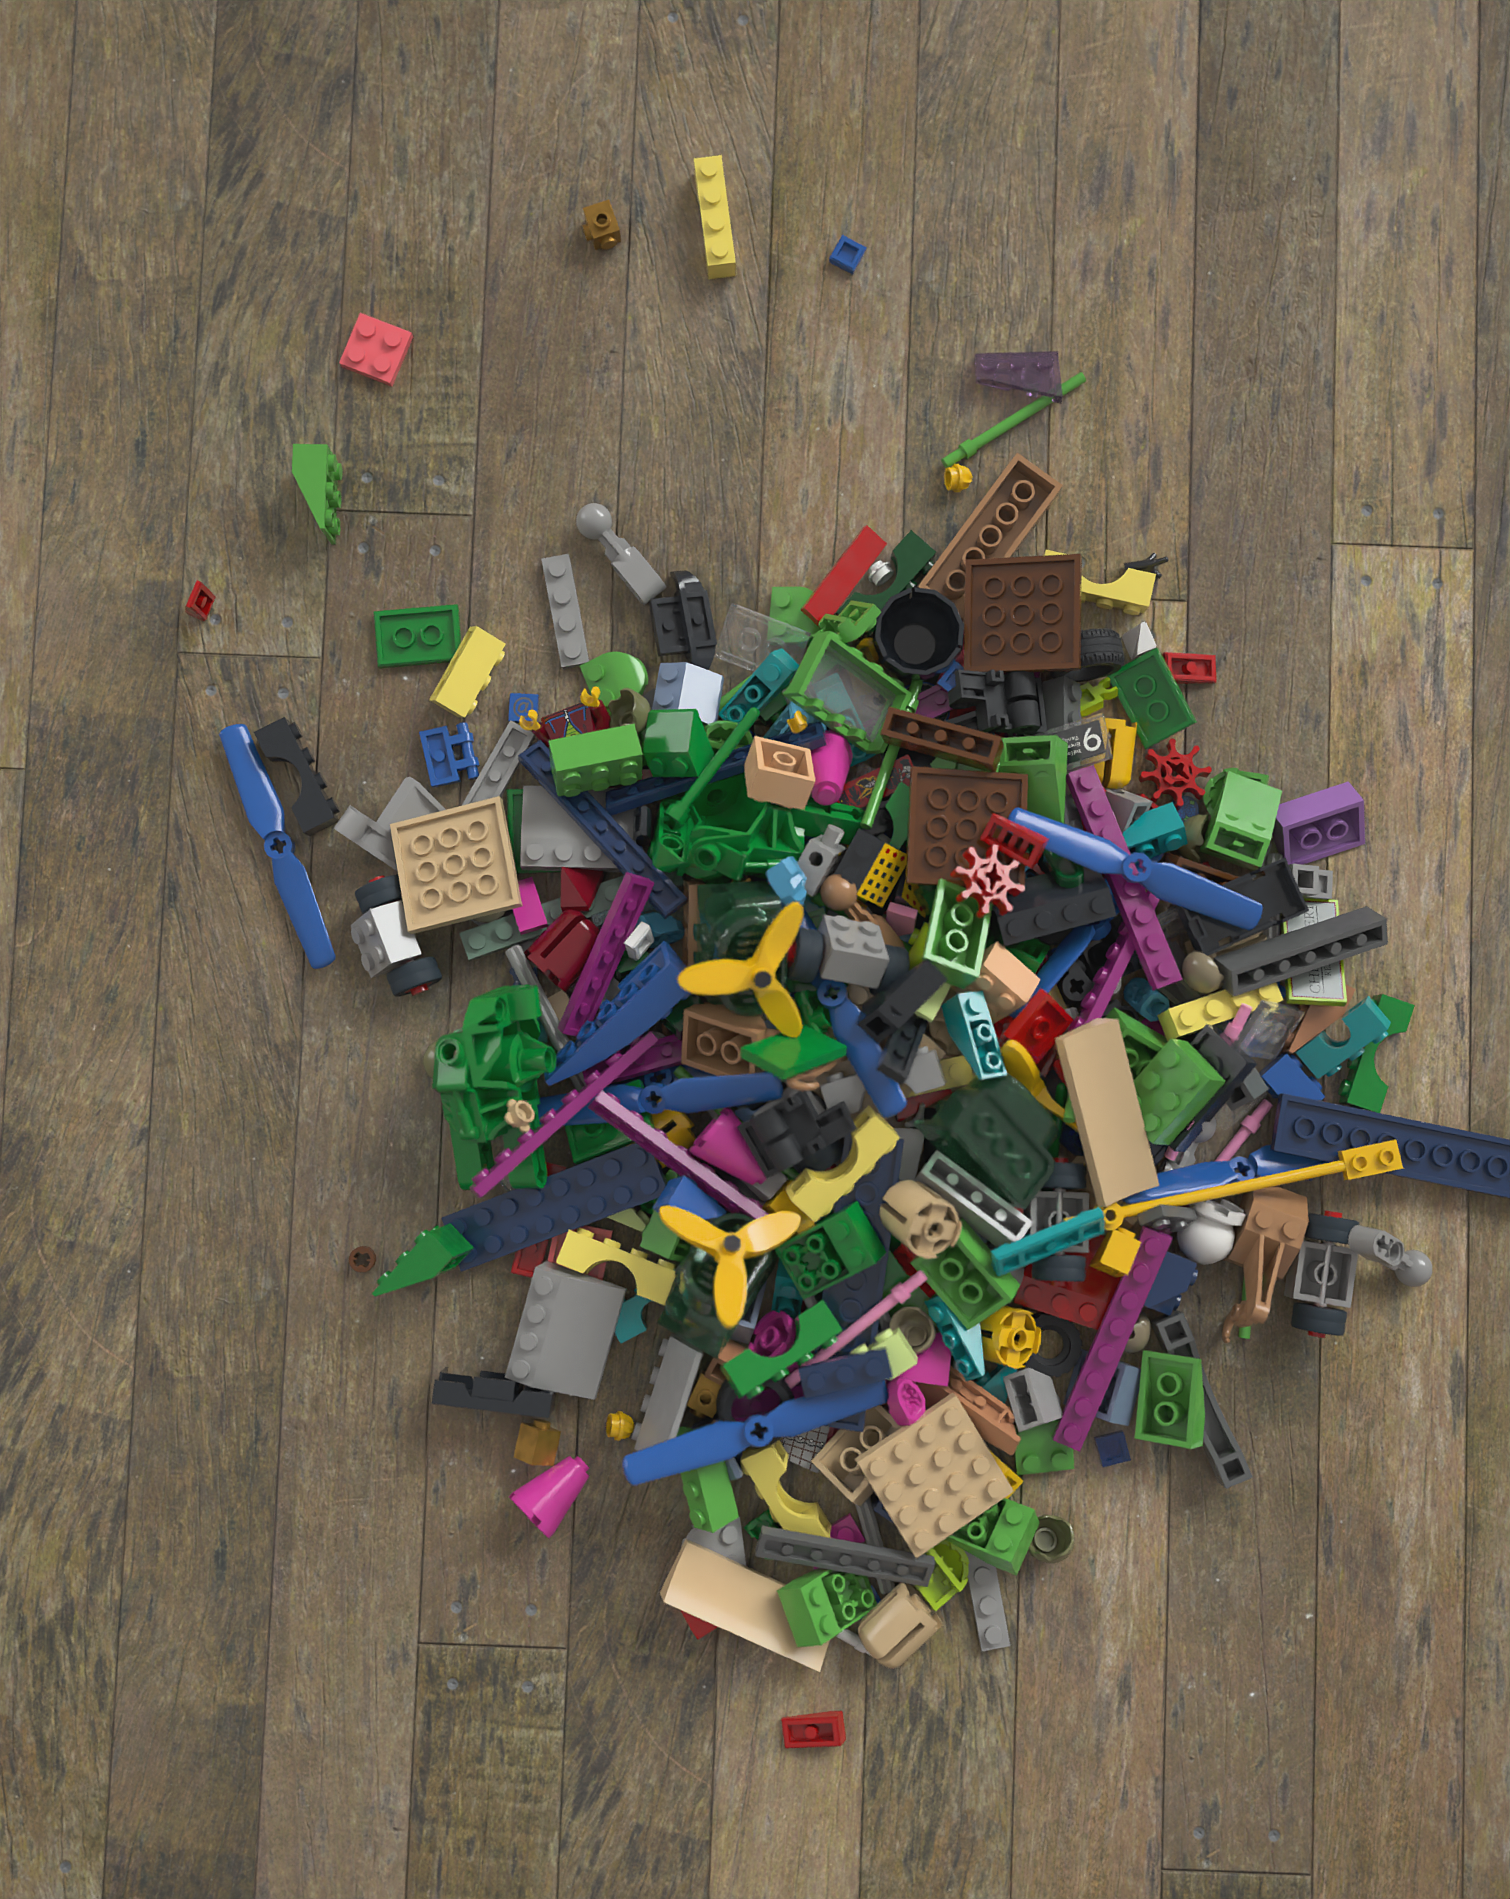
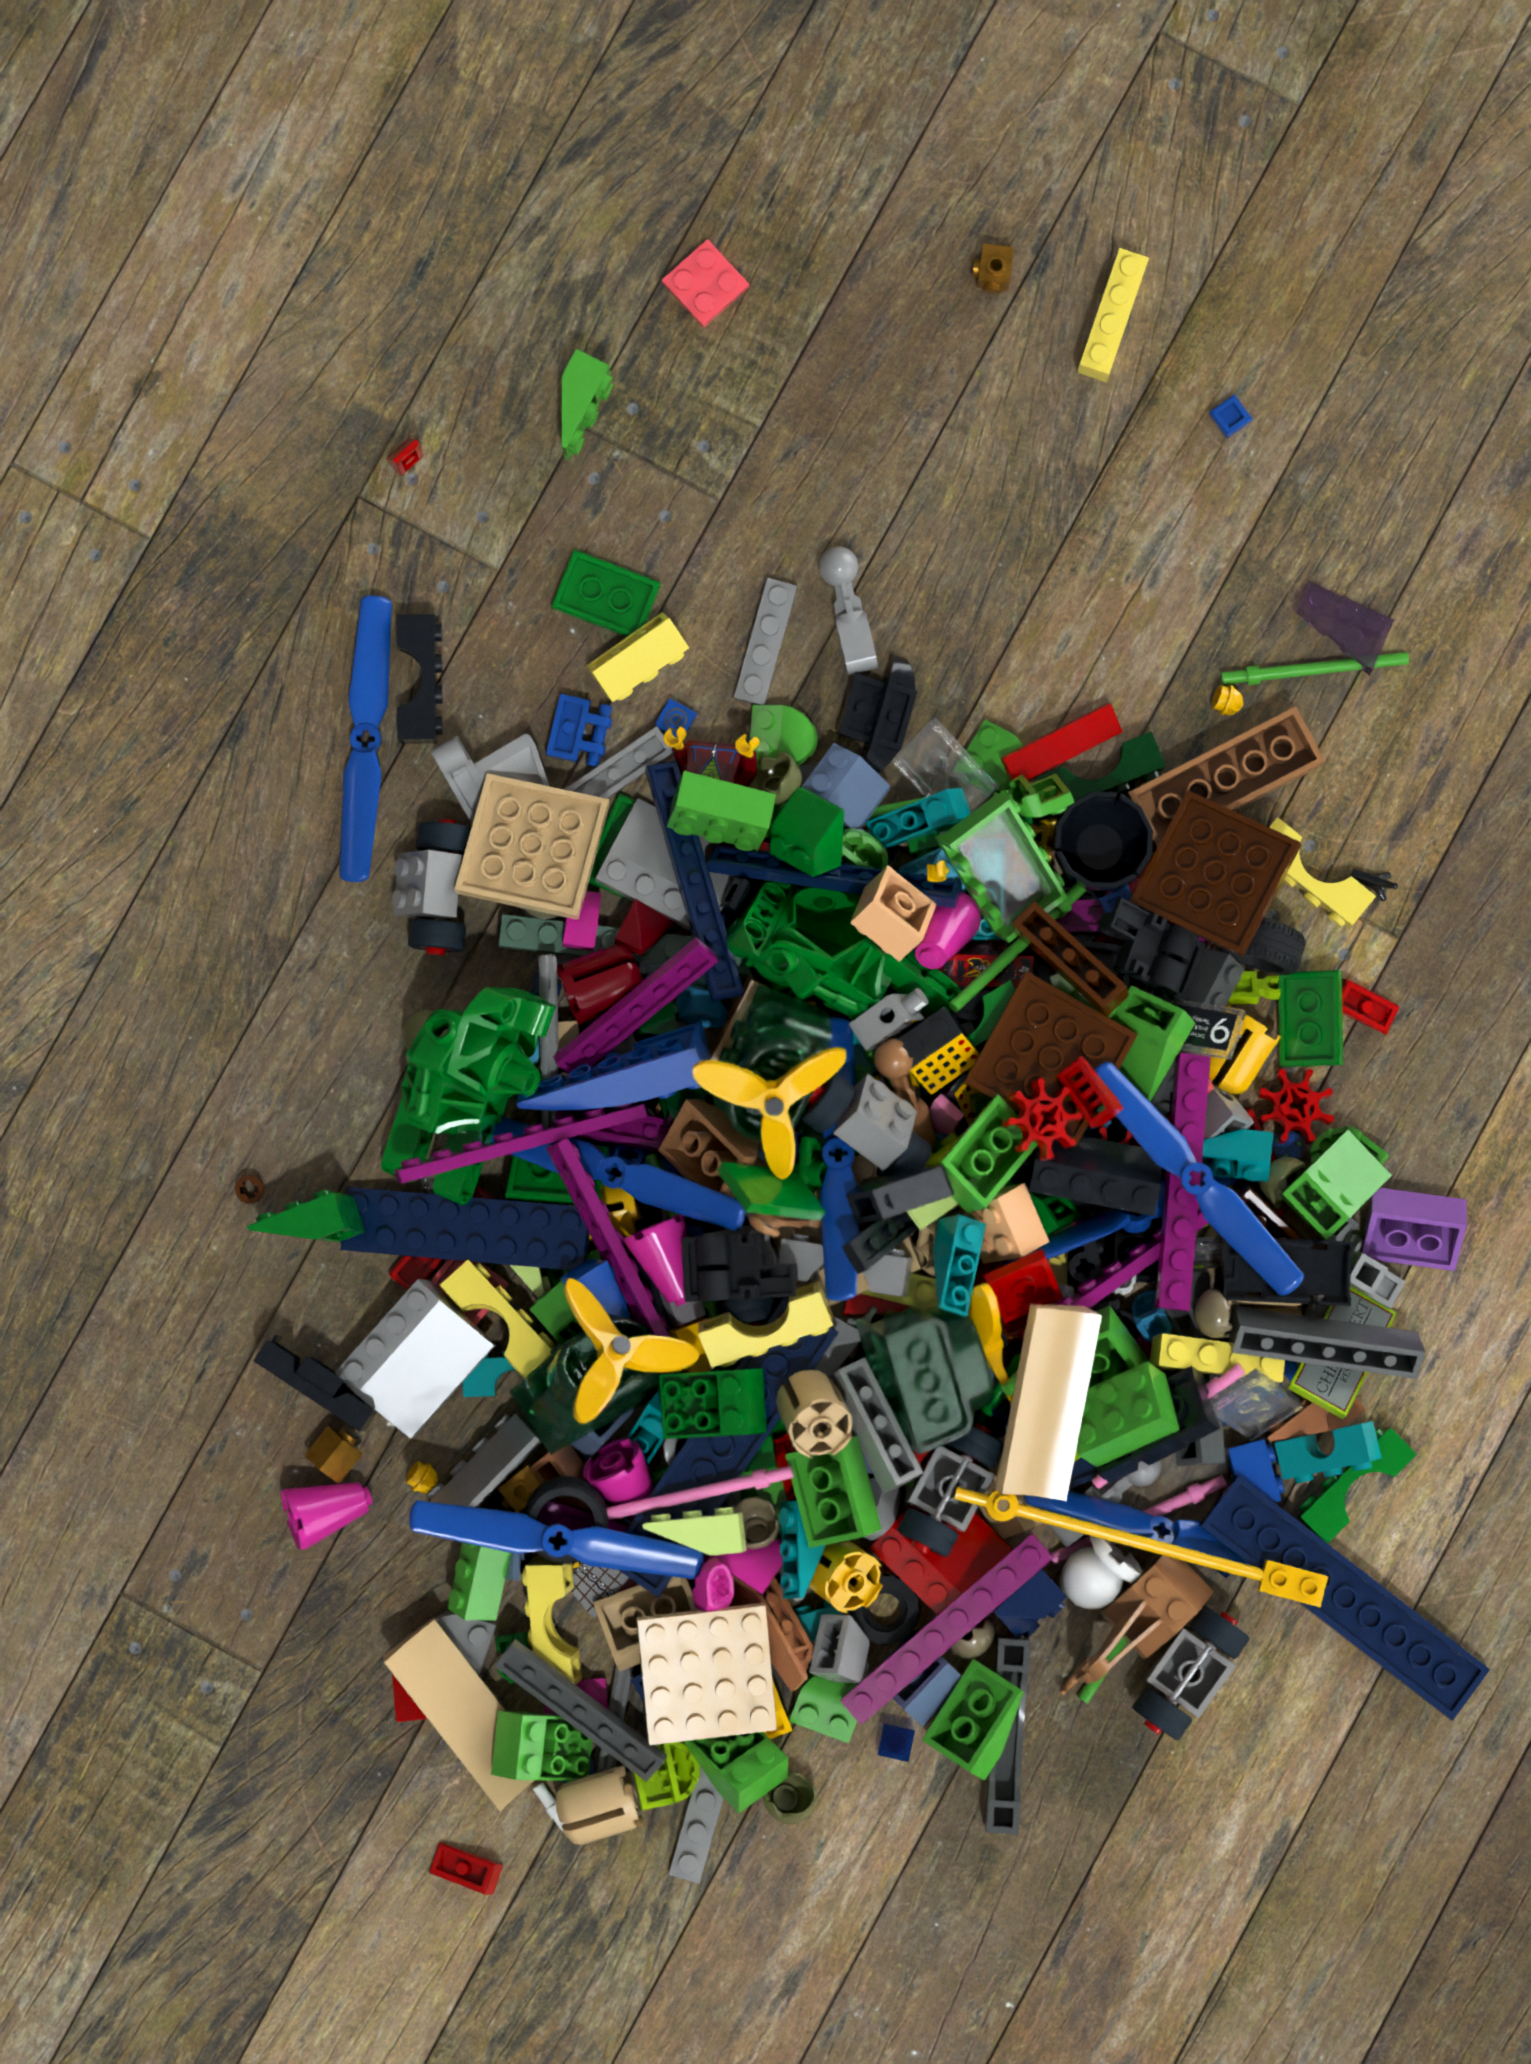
camera: 30 degrees right, 0 degrees up
(519, 1114) = (477, 1122): tan plate -> none
(639, 941) = (675, 1010): white tile -> none
(680, 810) = (780, 900): green piece -> none
(749, 1370) = (577, 1478): green arch -> none
(788, 881) = (848, 1024): dark azure rock -> none
(845, 1372) = (669, 1526): dark blue plate -> none
(880, 573) = (1101, 758): white plate -> none
(1048, 1241) = (928, 1498): teal plate -> none
(1064, 871) = (1126, 1149): dark green tile -> none
(1116, 1253) = (991, 1546): yellow slope -> none
(1138, 641) = (1327, 954): white slope -> none
(1167, 1216) = (1060, 1537): dark grey plate -> none
(1376, 1245) = (1283, 1713): light grey beam -> none

